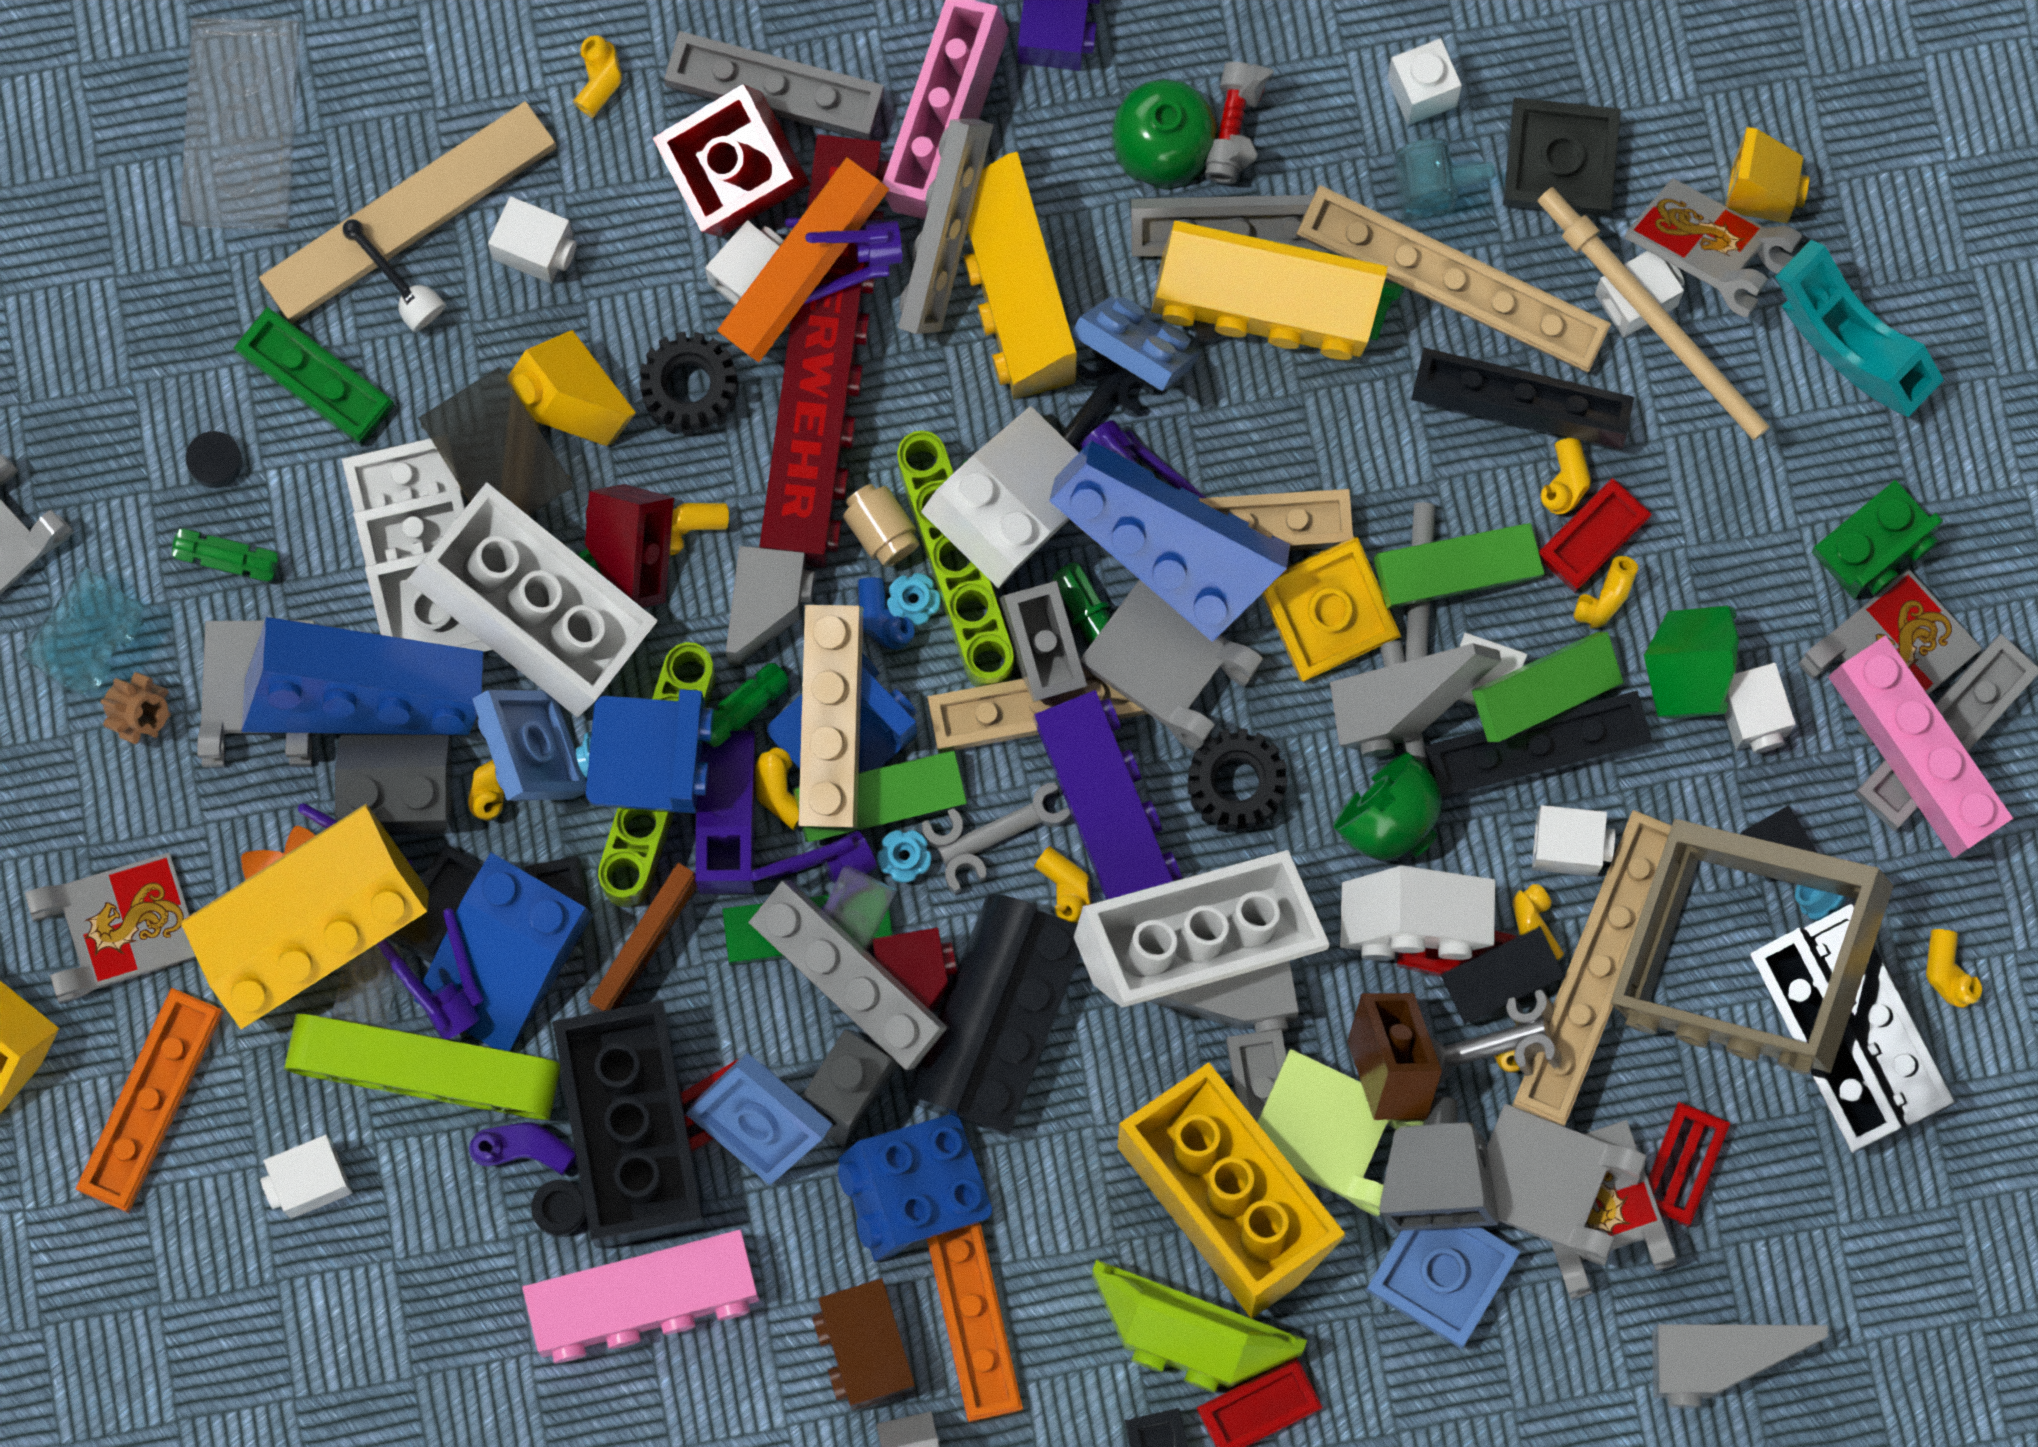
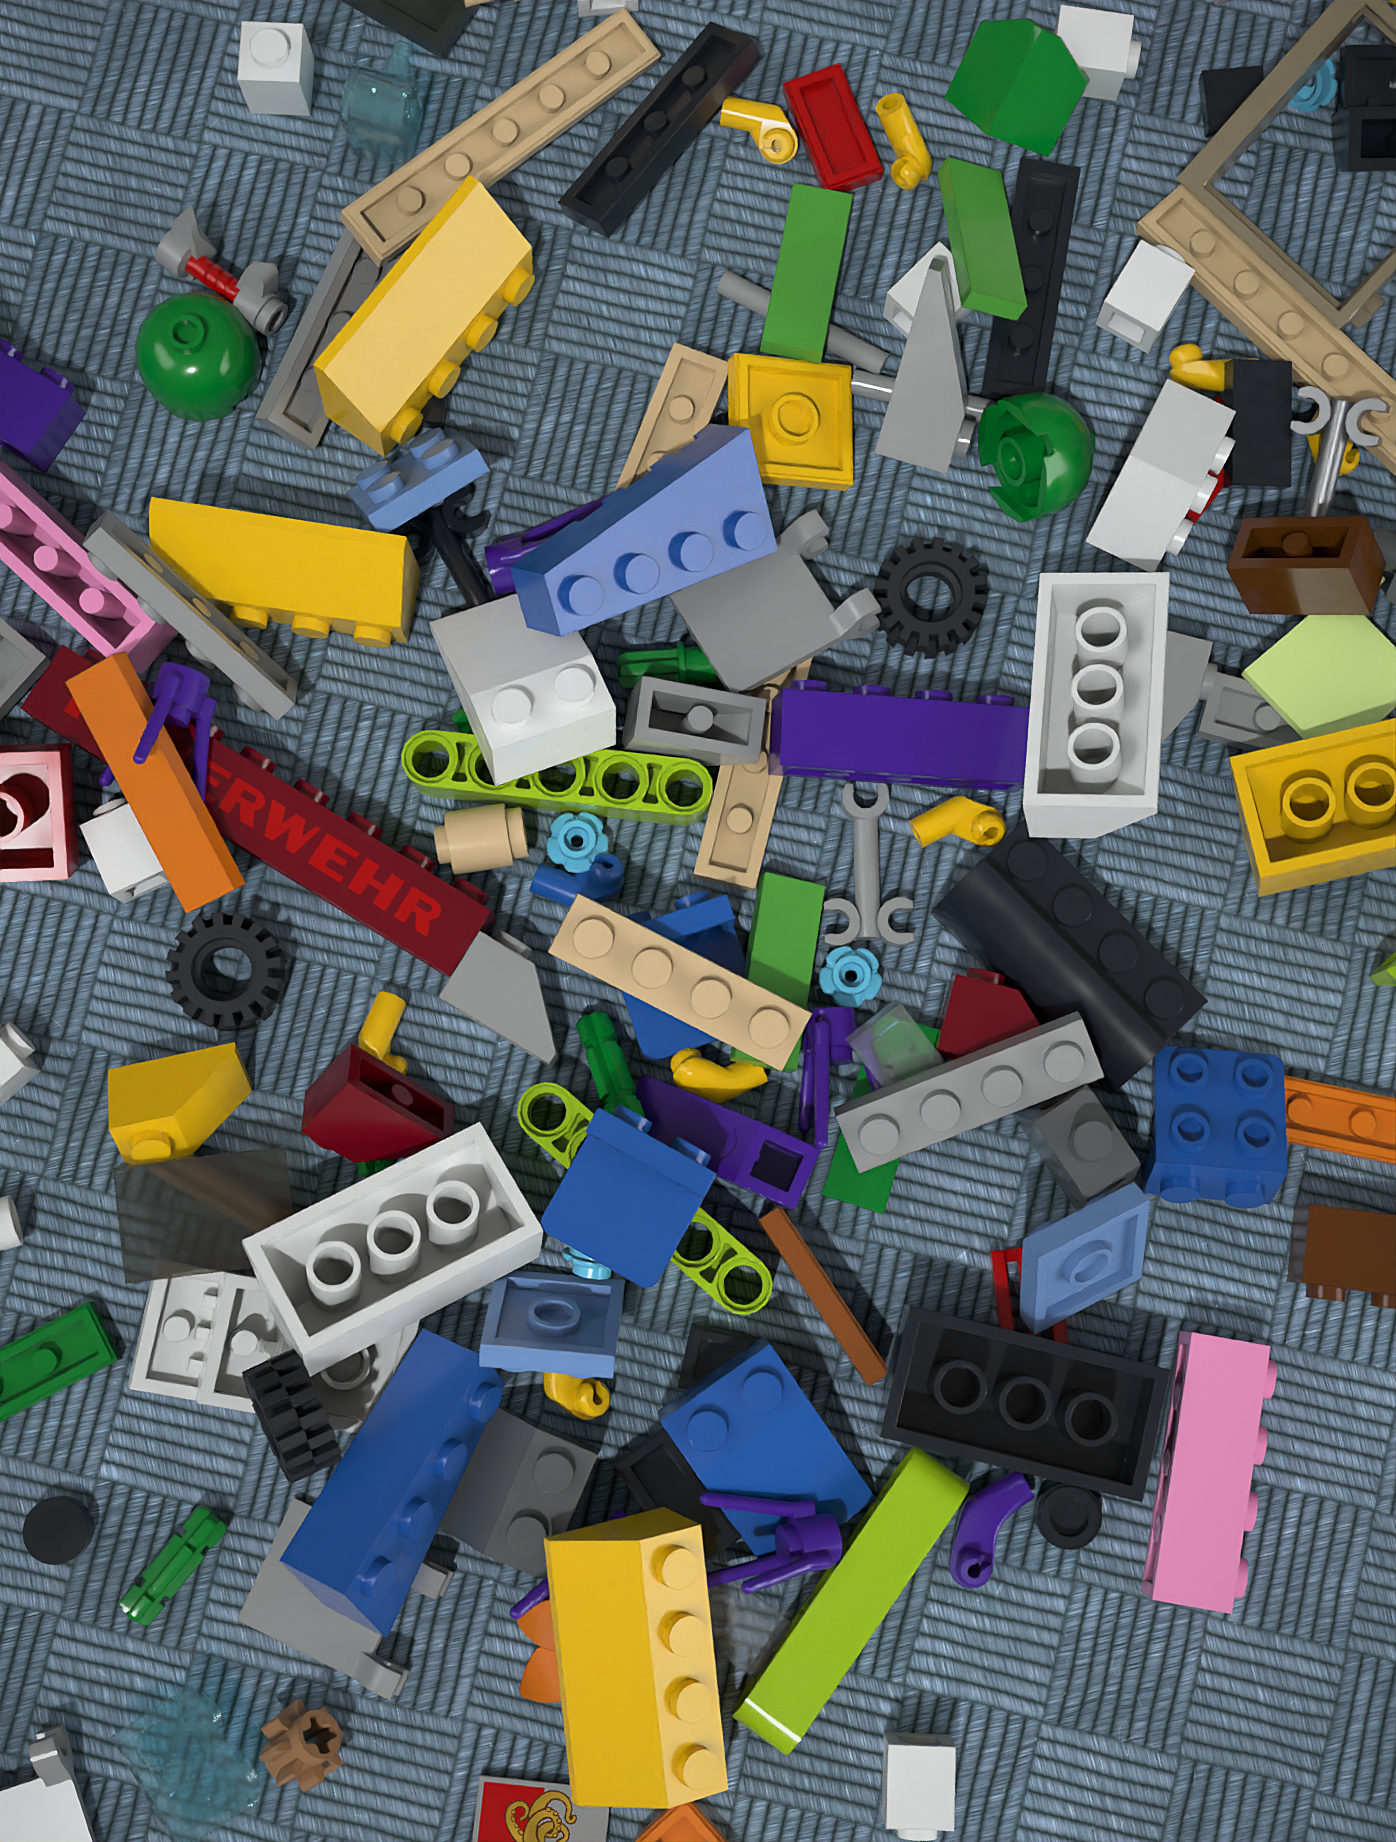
camera: 65 degrees left, 5 degrees up
(374, 579) = (292, 1416): none -> black tyre

